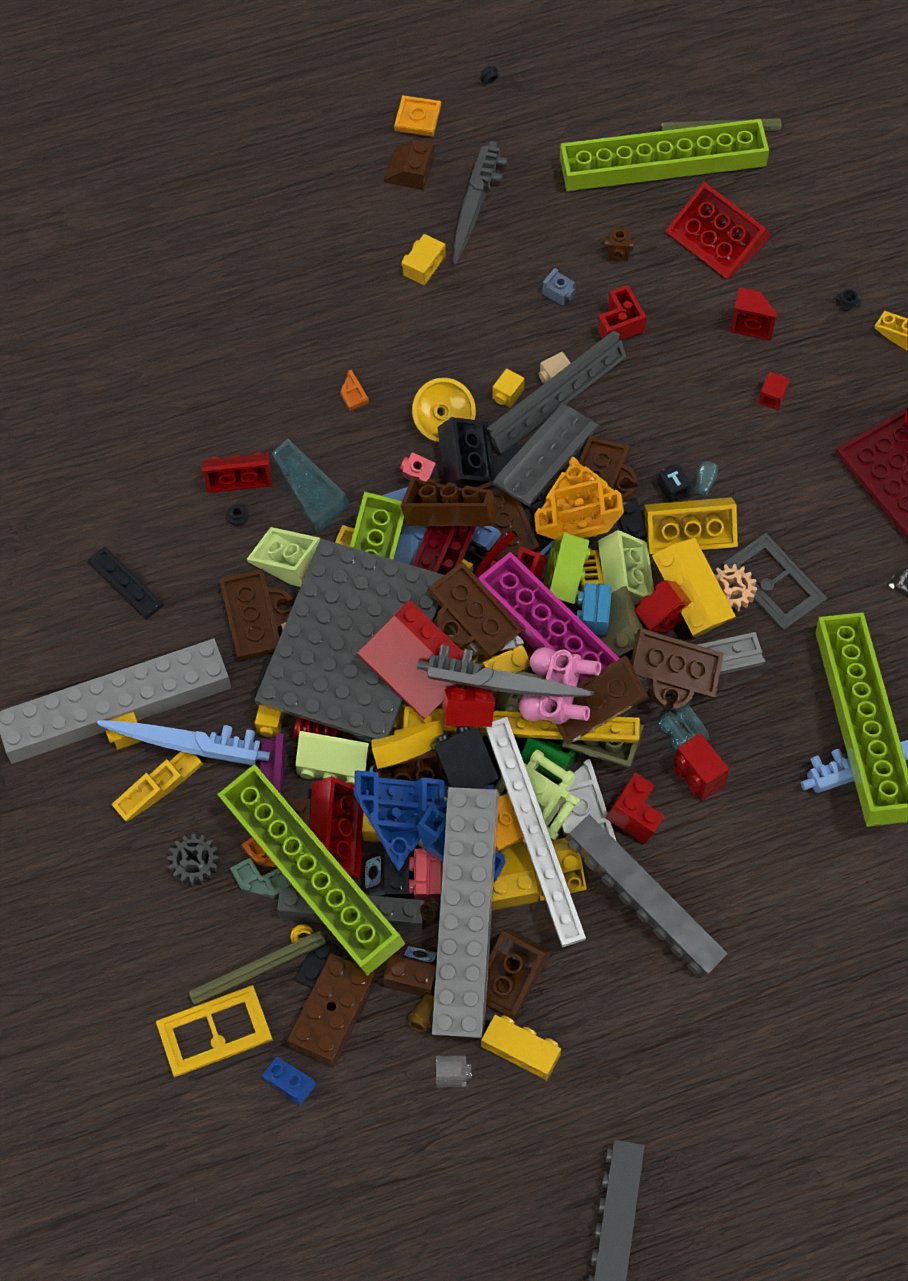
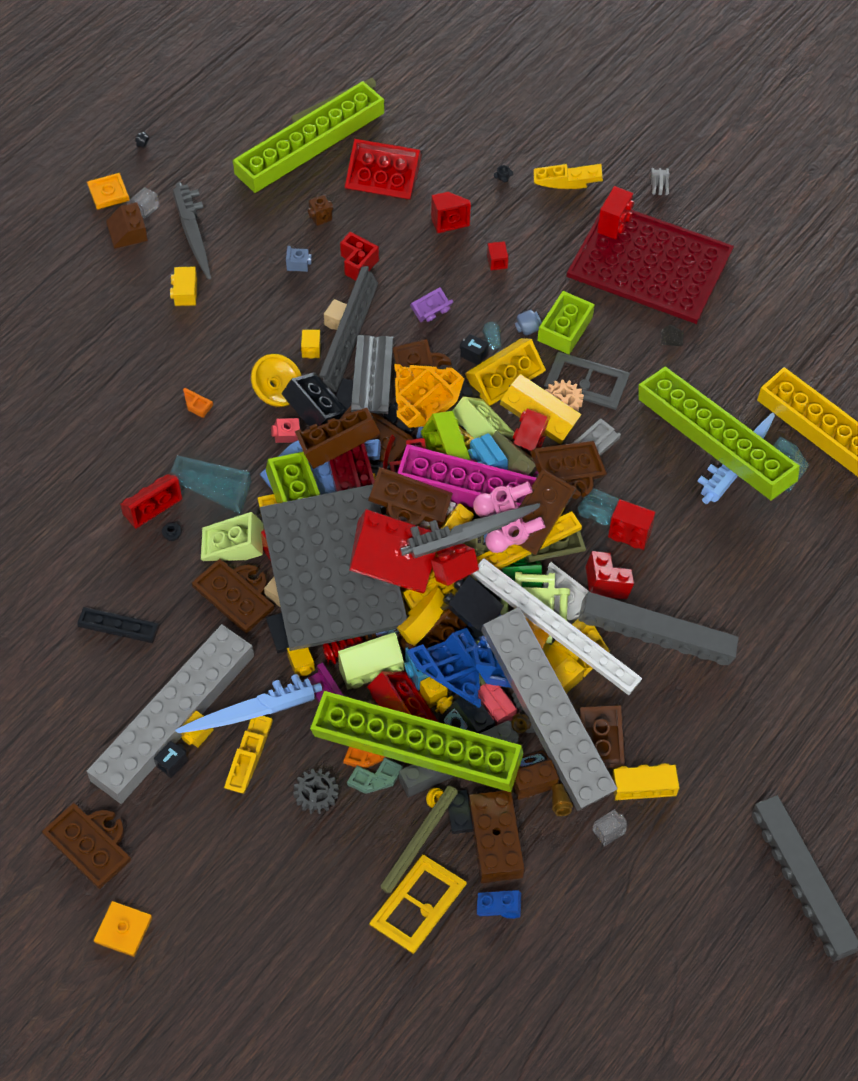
camera: 35 degrees left, 5 degrees down
(82, 746) = (171, 759): none -> black brick
(374, 846) = (443, 704): none -> yellow plate
(446, 146) = (147, 201): none -> clear brick
(663, 410) = (430, 305): none -> medium lavender bracket
(753, 483) = (528, 322): none -> sand blue head
(793, 505) = (565, 322): none -> lime brick

